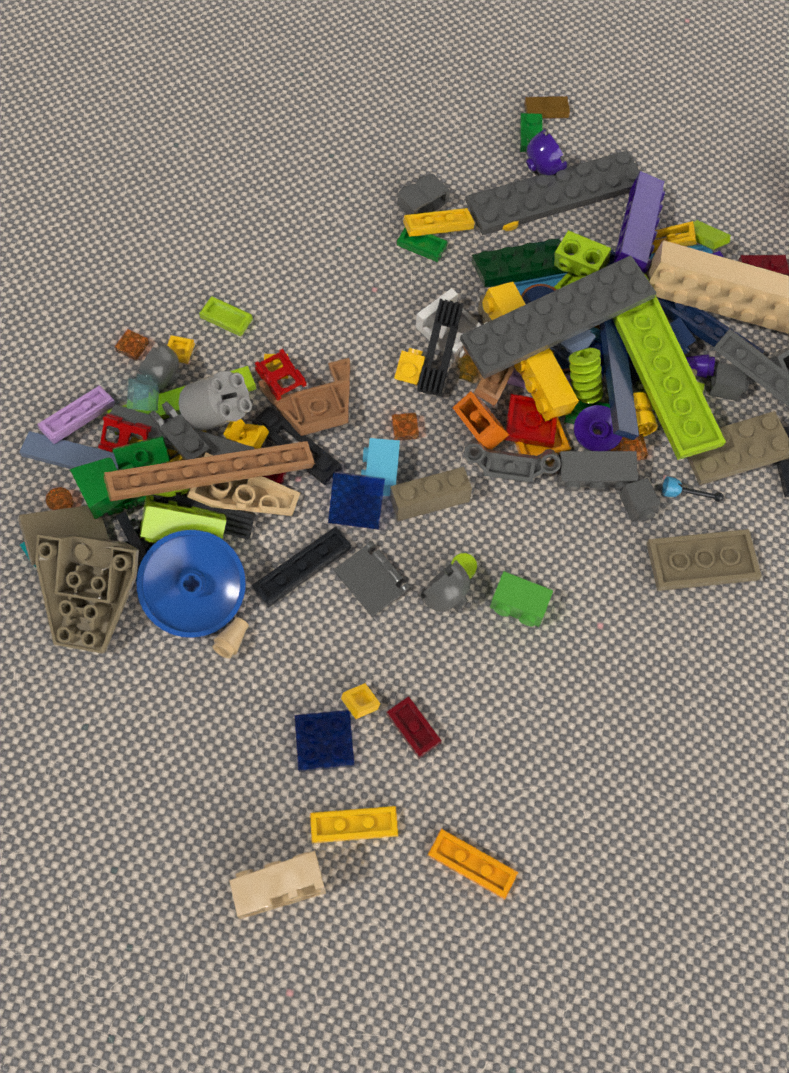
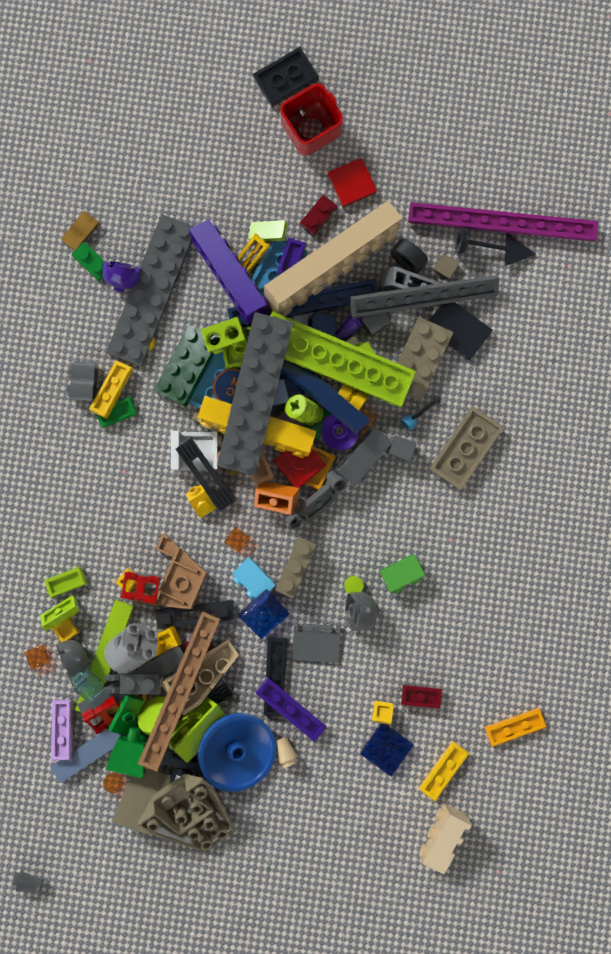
camera: 40 degrees left, 20 degrees up
(183, 328) = (59, 613): none -> lime plate
(281, 603) = (290, 709): none -> dark purple plate

